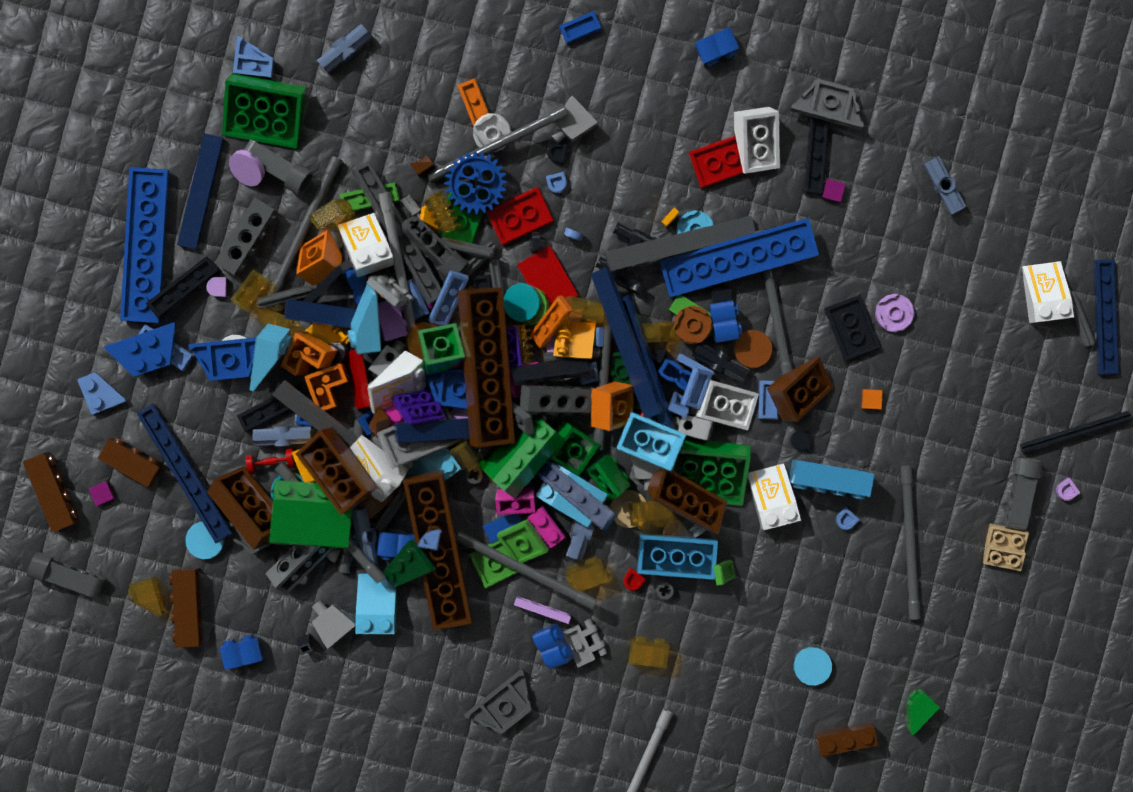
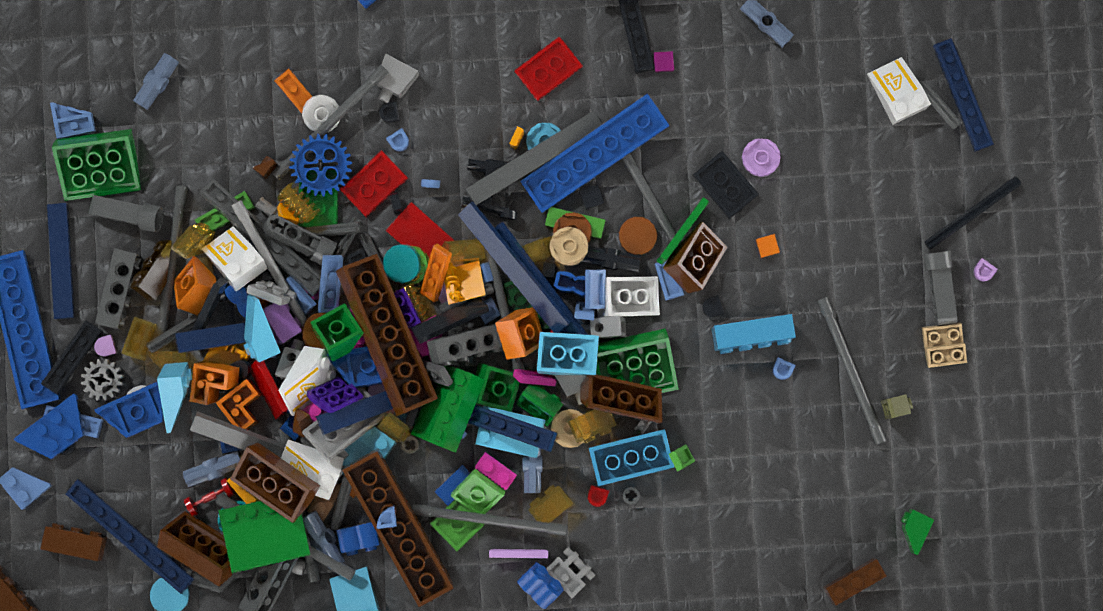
camera: 10 degrees left, 5 degrees down
(101, 493) = (55, 583): magenta tile -> none
(200, 323) = (104, 372): none -> light grey gear
(246, 168) = (98, 223): lavender tile -> none
(268, 410) = (191, 448): black tile -> none
(284, 234) = (154, 274): none -> dark brown slope
(407, 565) = (373, 551): dark green wing -> none
(523, 503) = (466, 454): dark pink brick -> none
(610, 451) = (534, 377): none -> dark pink tile
(648, 652) = (635, 561): clear yellow brick -> none
(685, 338) = (569, 246): none -> tan tile
(690, 363) = (580, 269): medium blue tile -> none
(724, 321) = (601, 218): blue brick -> none
(758, 139) = (575, 37): white slope -> none
(773, 497) = (705, 370): white slope -> none
(797, 359) = (682, 231): none -> green tile
(812, 666) = (798, 521): medium azure tile -> none
(940, 591) = (896, 406): none -> olive slope

